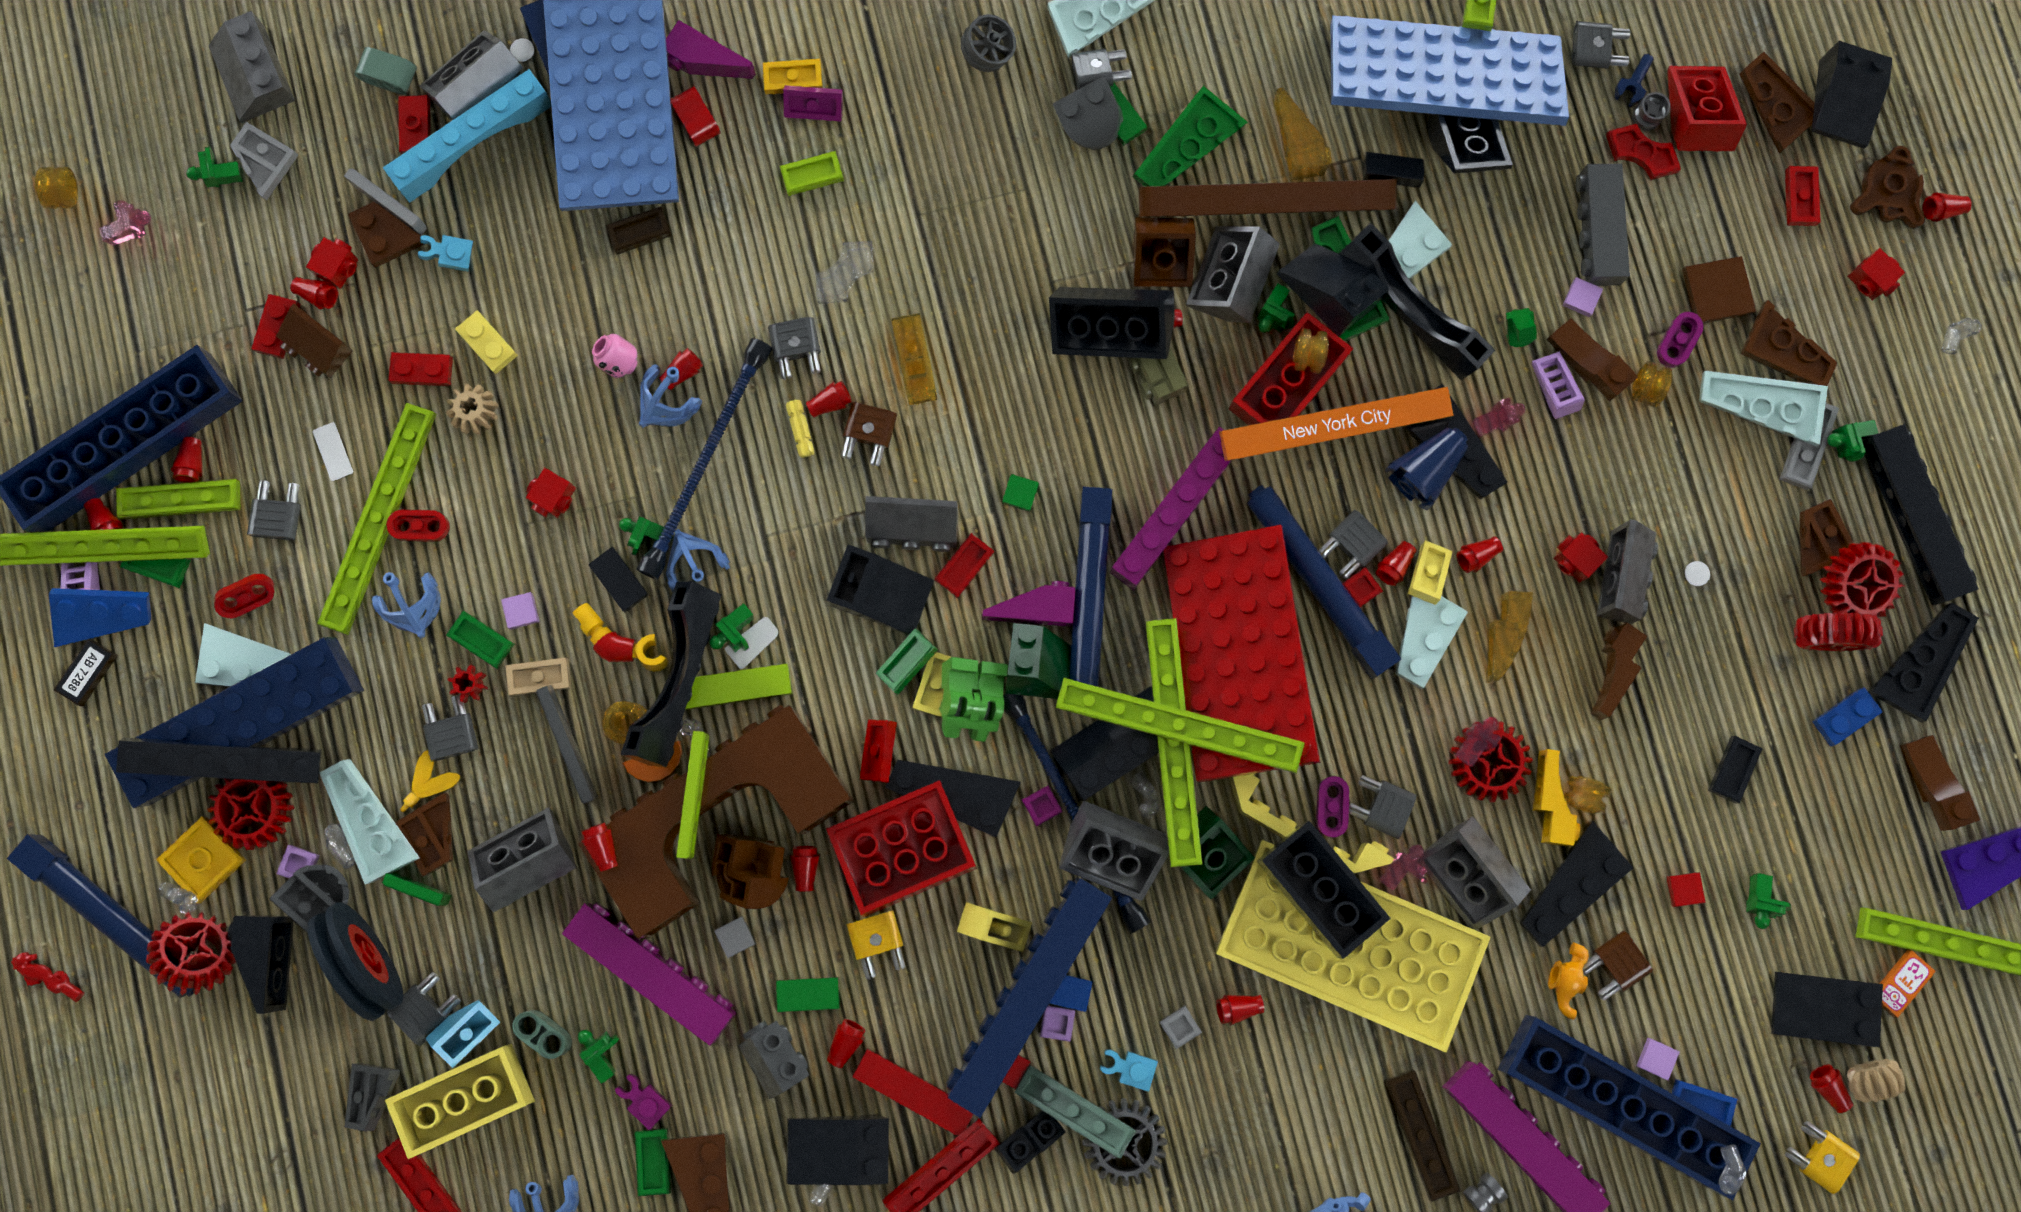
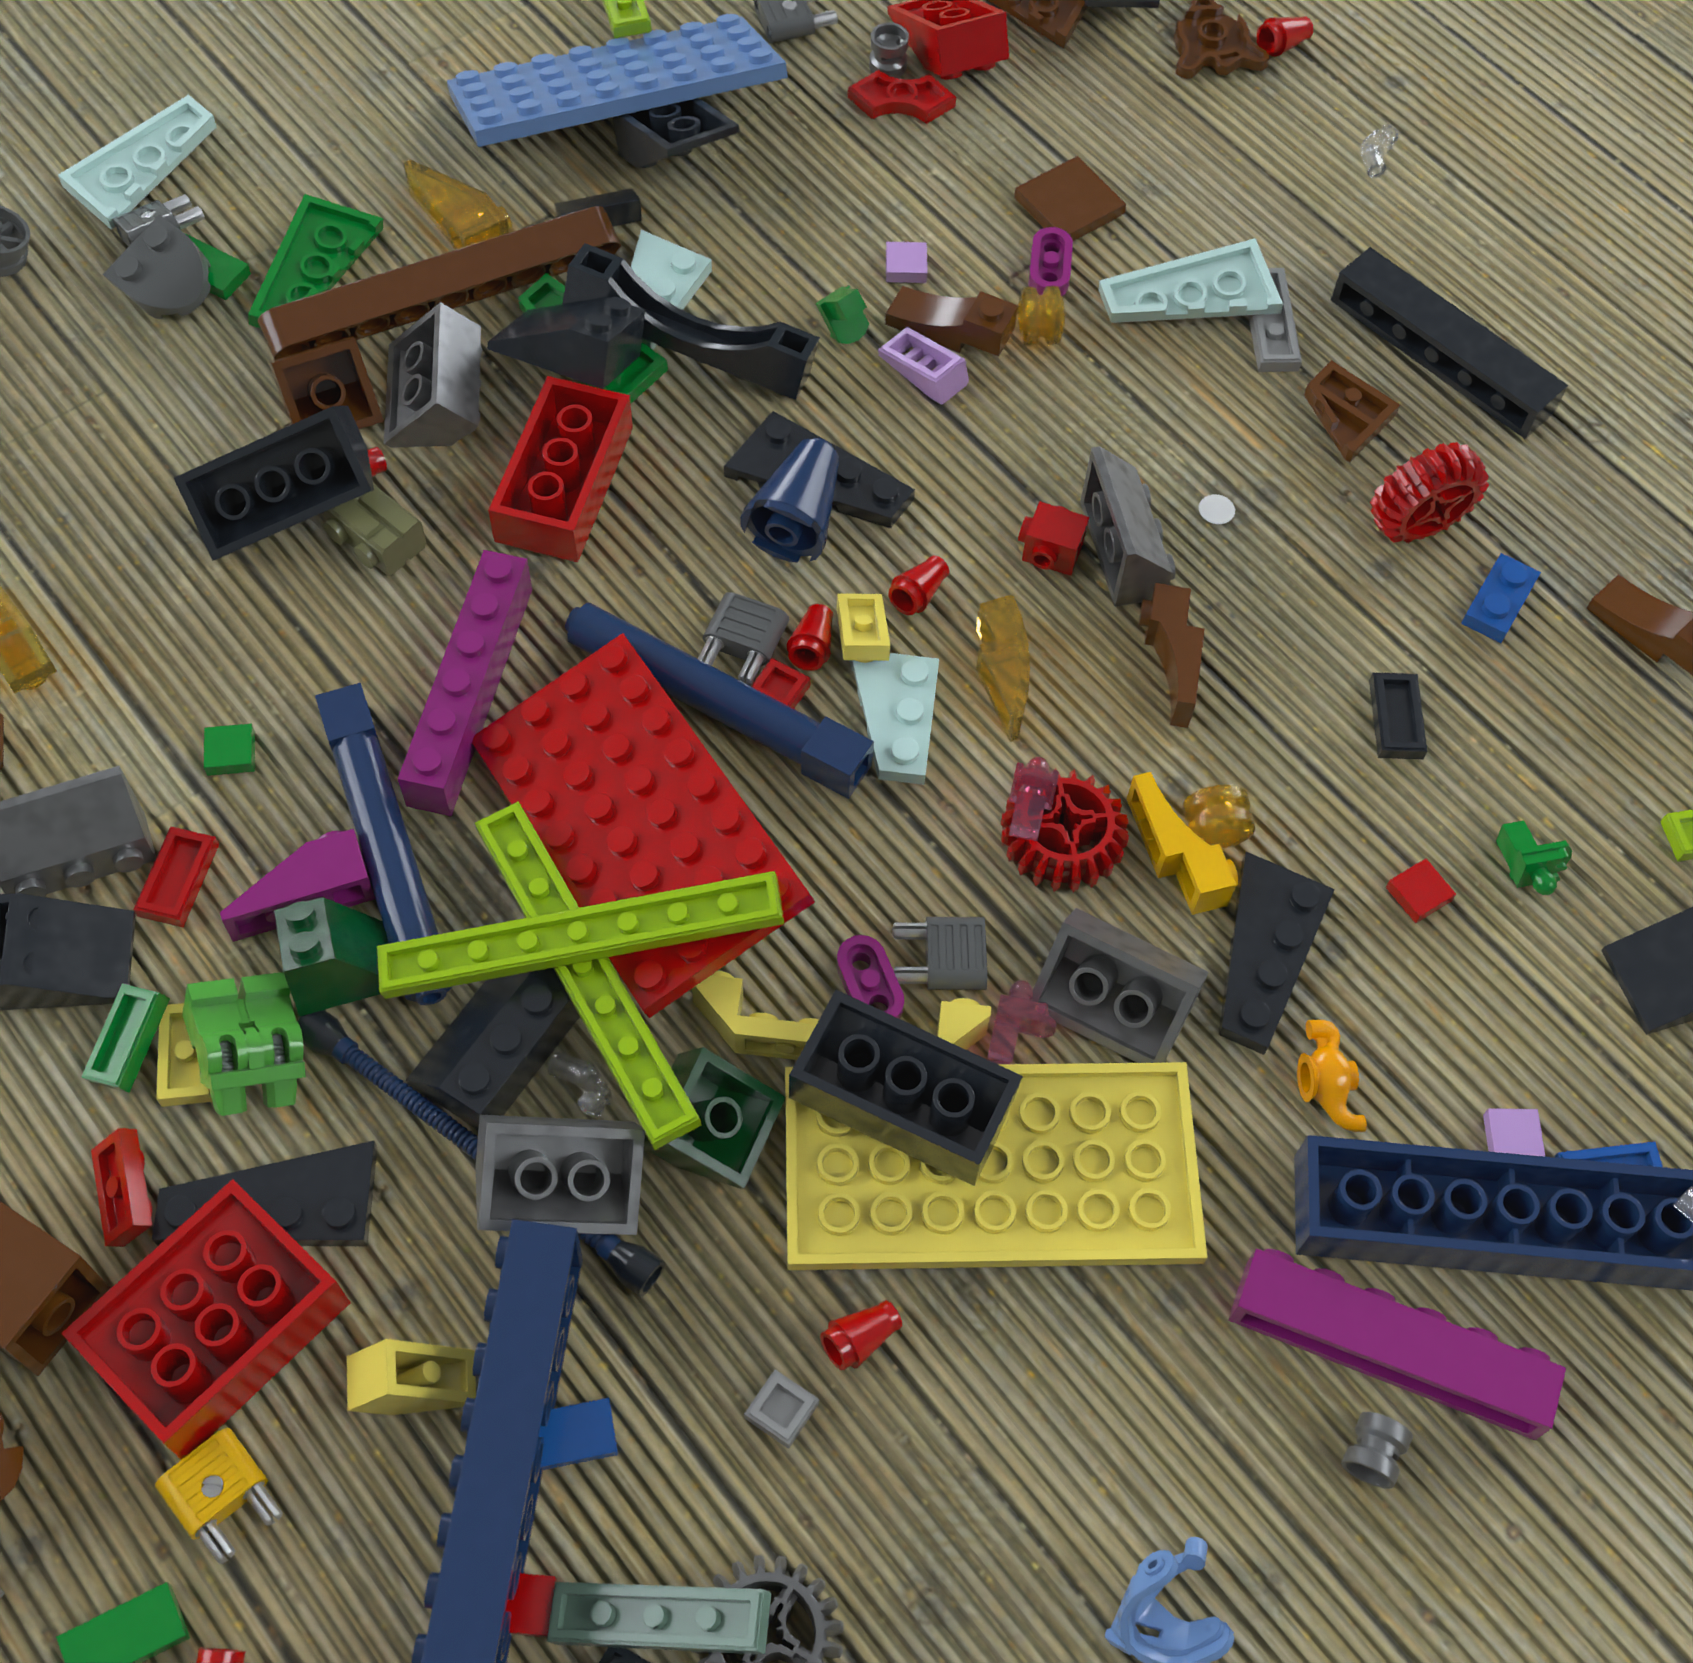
camera: 25 degrees left, 20 degrees down
(804, 866) = (50, 1421): red cone -> none
(1042, 806) = (423, 1165): magenta tile -> none
(1057, 1023) = (577, 1493): lavender tile -> none
(1134, 1069) = (737, 1512): medium azure plate -> none
(1274, 315) = (507, 405): green piece -> none
(1310, 351) = (568, 405): clear yellow wheel -> none
(1335, 423) = (640, 490): orange tile -> none
(1422, 1135) = (1237, 1408): dark brown tile -> none
(1501, 416) = (869, 422): clear pink piece -> none
(1603, 224) = (891, 176): dark grey brick -> none
(1621, 962) = (1389, 1024): reddish brown piece -> none
(1634, 83) = (854, 36): dark blue bar -> none
(1783, 348) = (1179, 231): reddish brown wing -> none
(1802, 196) = (1114, 76): red plate -> none
(1849, 439) = (1317, 293): green piece -> none
(1858, 564) = (1418, 417): red gear -> none
(1877, 275) = (1246, 121): red brick -> none
(1924, 667) = (1559, 501): black wing -> none

